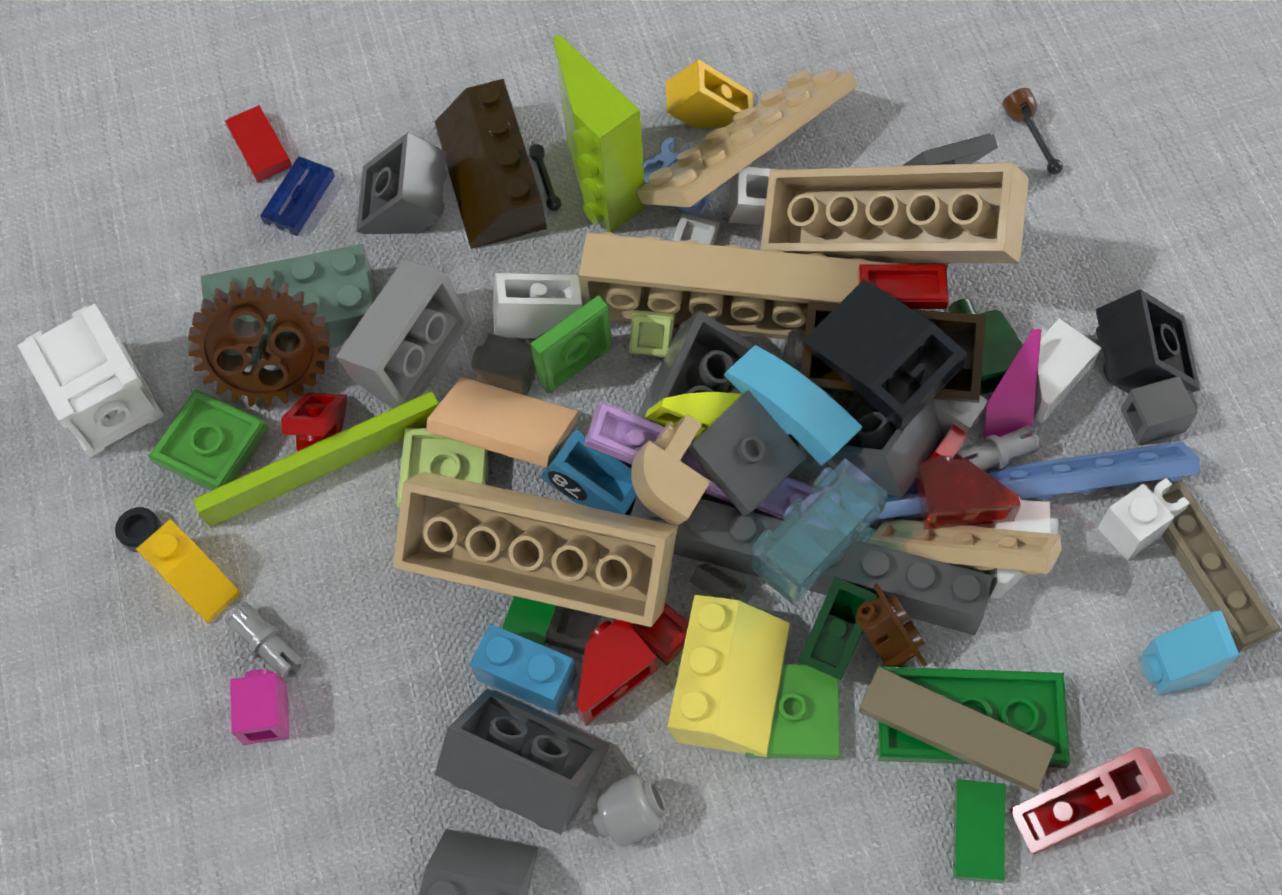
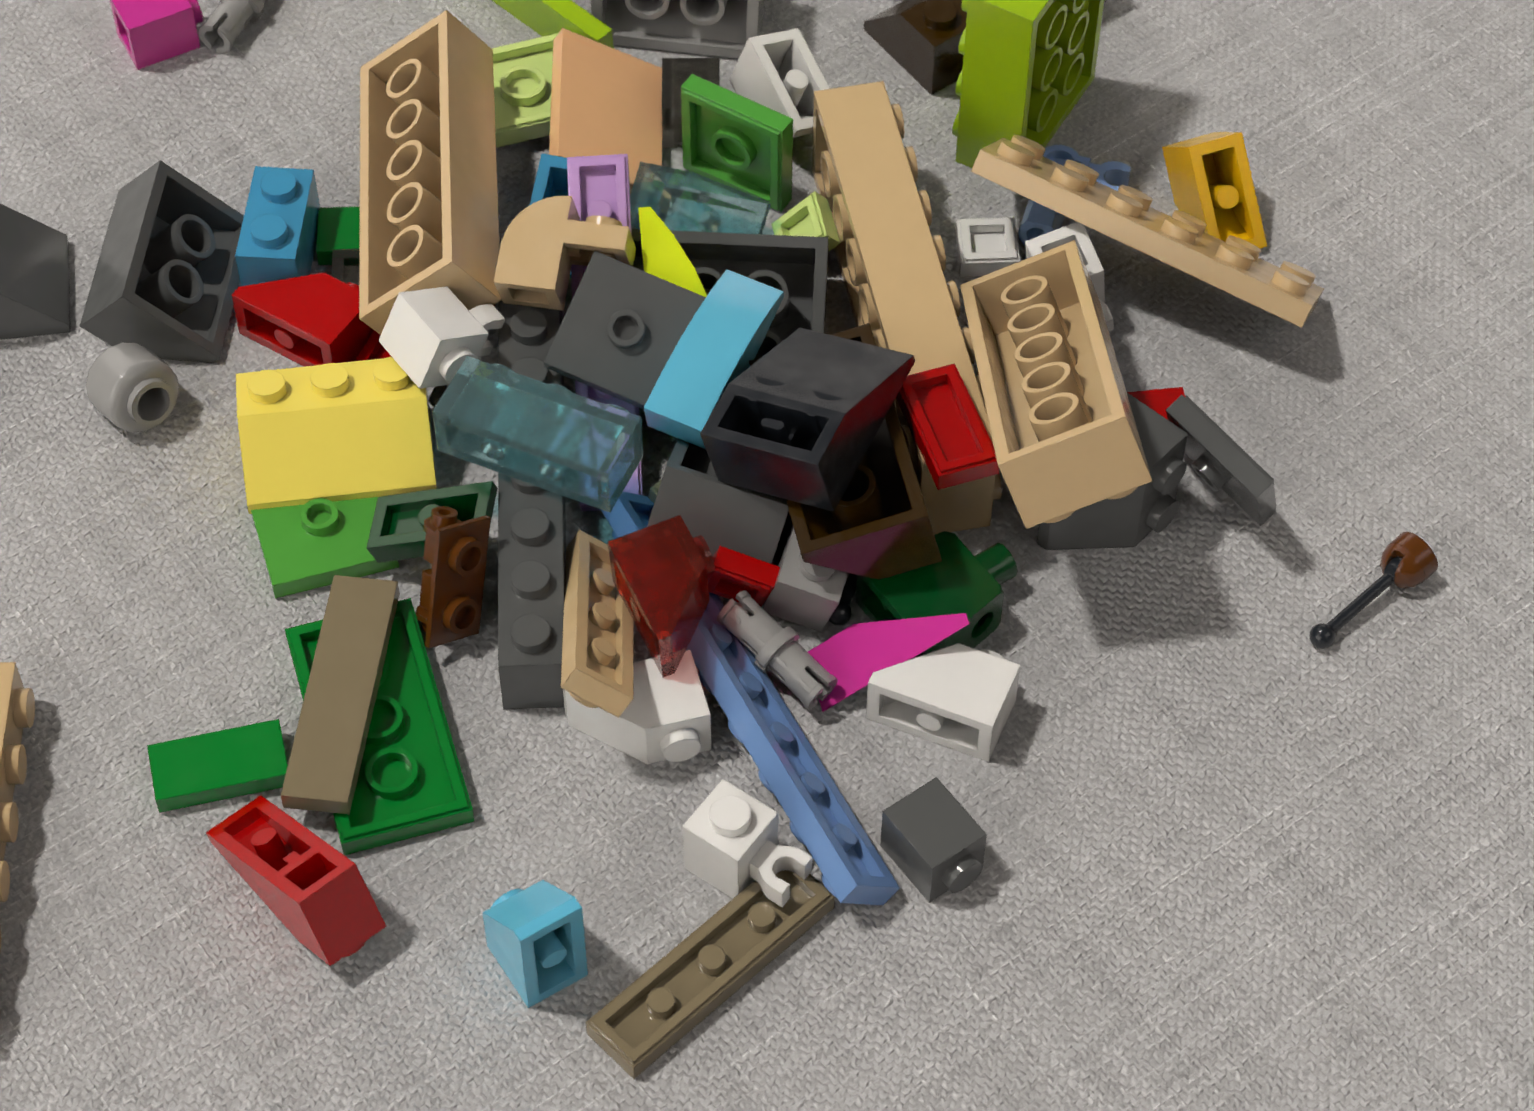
camera: 65 degrees right, 10 degrees down
(617, 381) = (695, 202): none -> clear light blue slope
(703, 574) = (435, 332): none -> white brick
(1144, 343) = (1042, 807): black slope -> none

